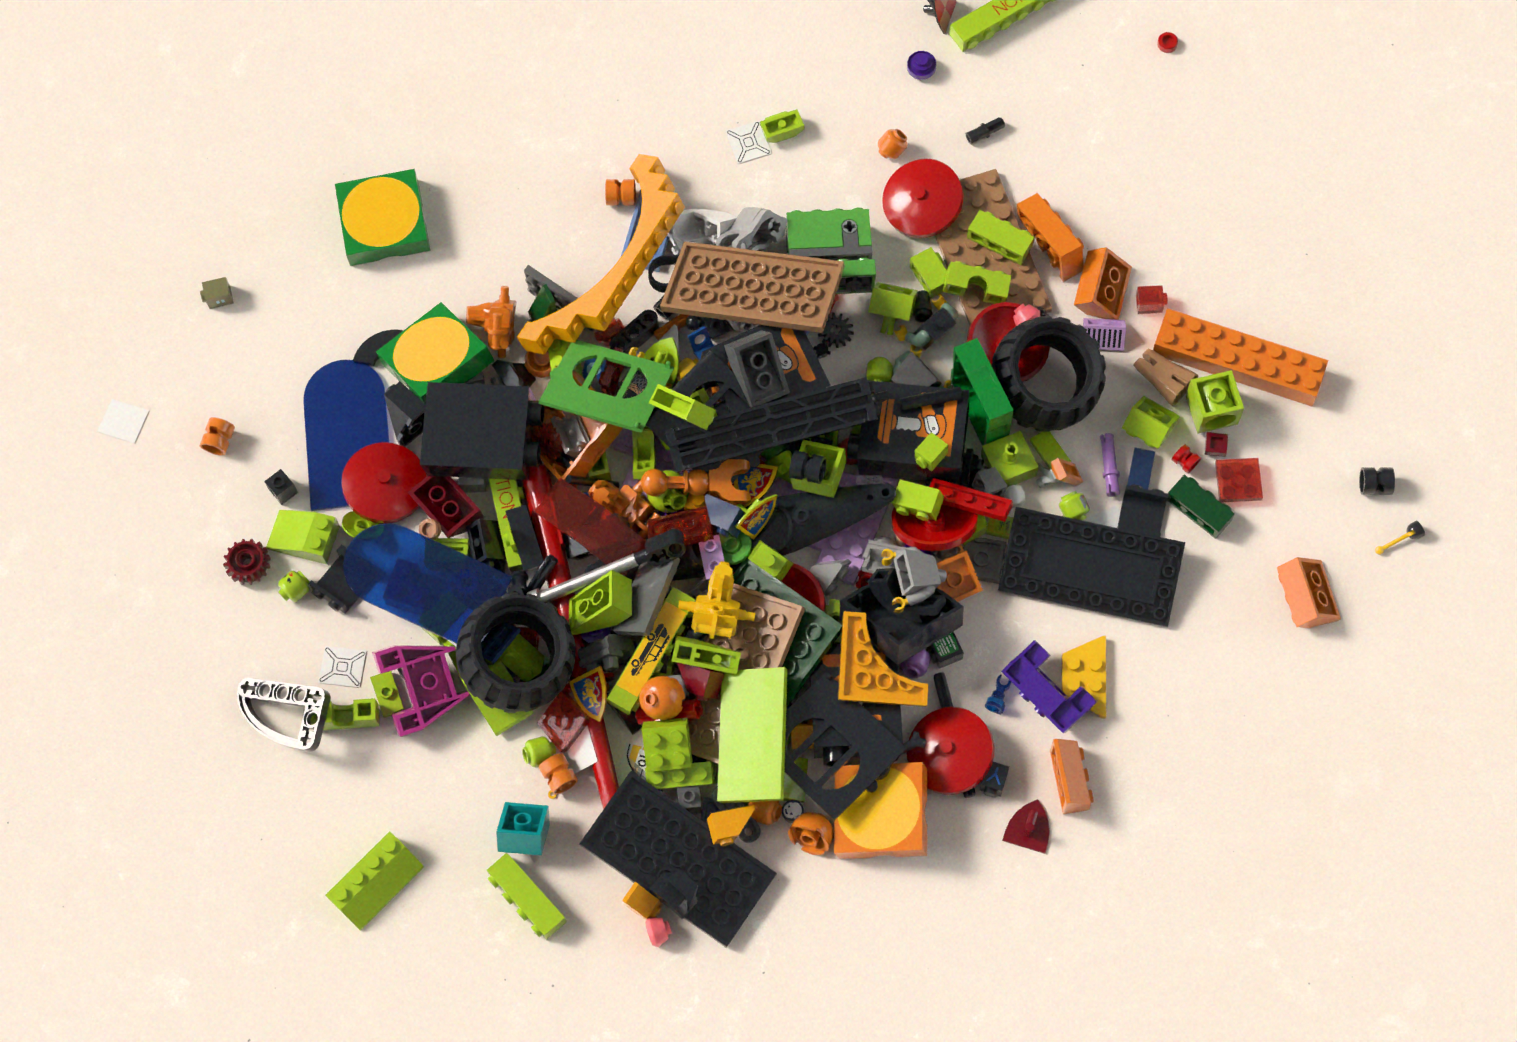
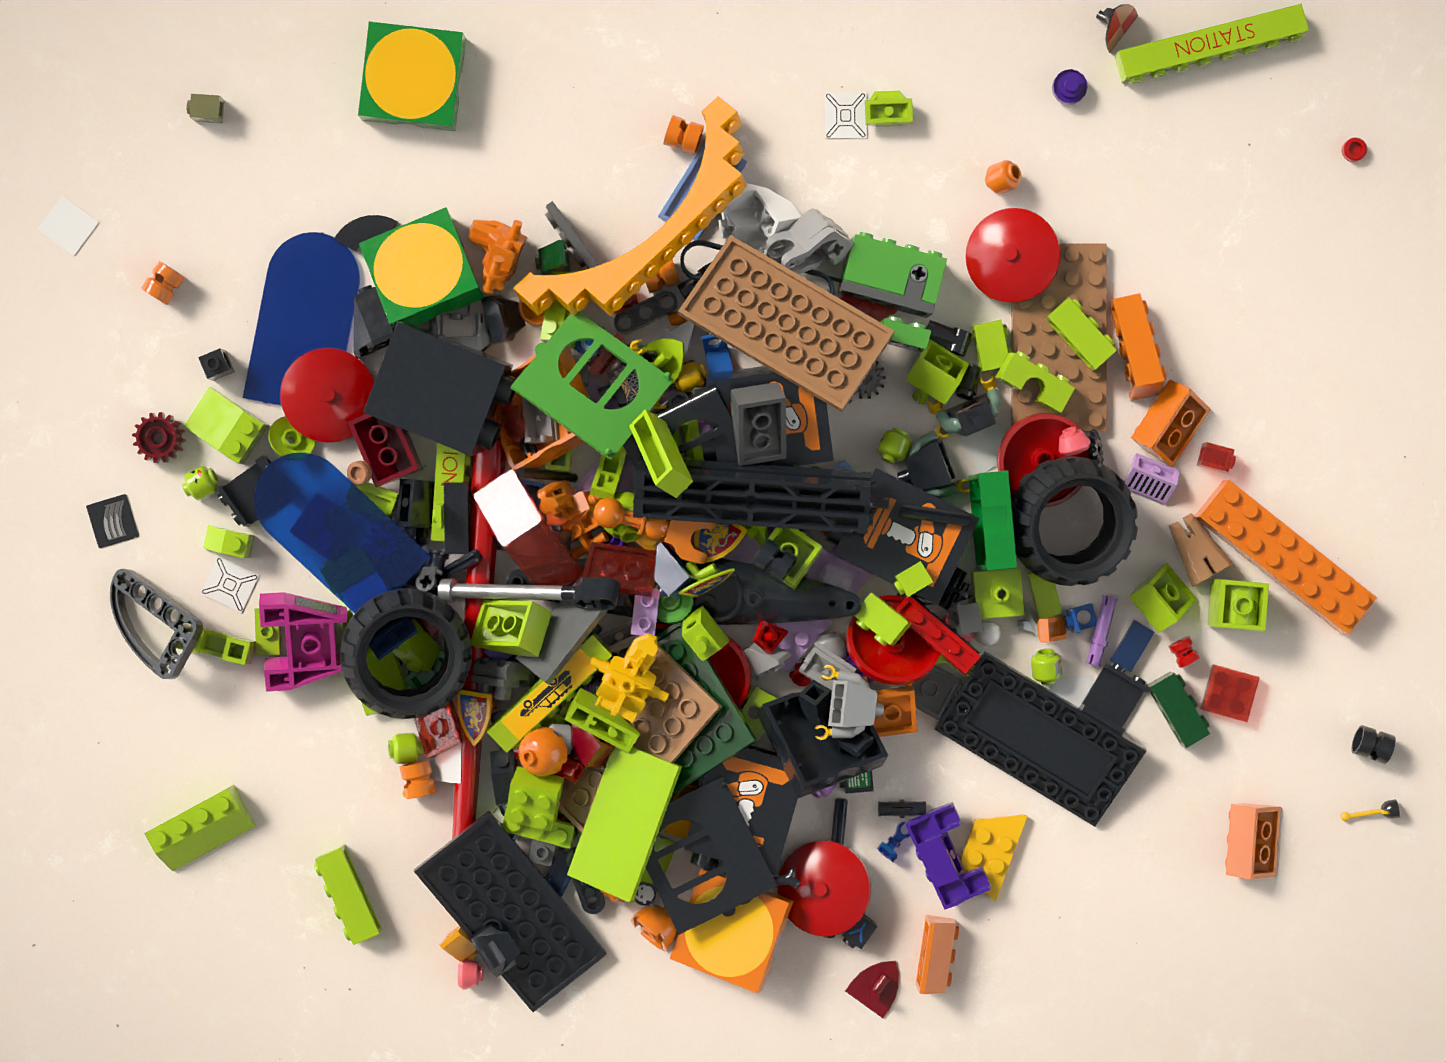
camera: 15 degrees right, 20 degrees up
(224, 646) = (112, 521): none -> black sticker
(332, 628) = (228, 542): none -> lime slope
(523, 828) = (363, 829): teal brick -> none
(632, 741) = (502, 772): none -> black slope
(638, 299) = (666, 276): none -> orange wheel
(728, 824) = (572, 898): light orange slope -> none
(826, 550) = (769, 636): none -> red piece
(866, 676) = (761, 799): light orange plate -> none
(899, 276) = (952, 339): none -> black piece
(984, 130) = (1111, 191): black axle -> none
(994, 664) = (918, 808): none -> black pin
(1083, 464) = (1072, 622): none -> blue bracket
(1216, 444) = (1222, 645): dark red plate -> none

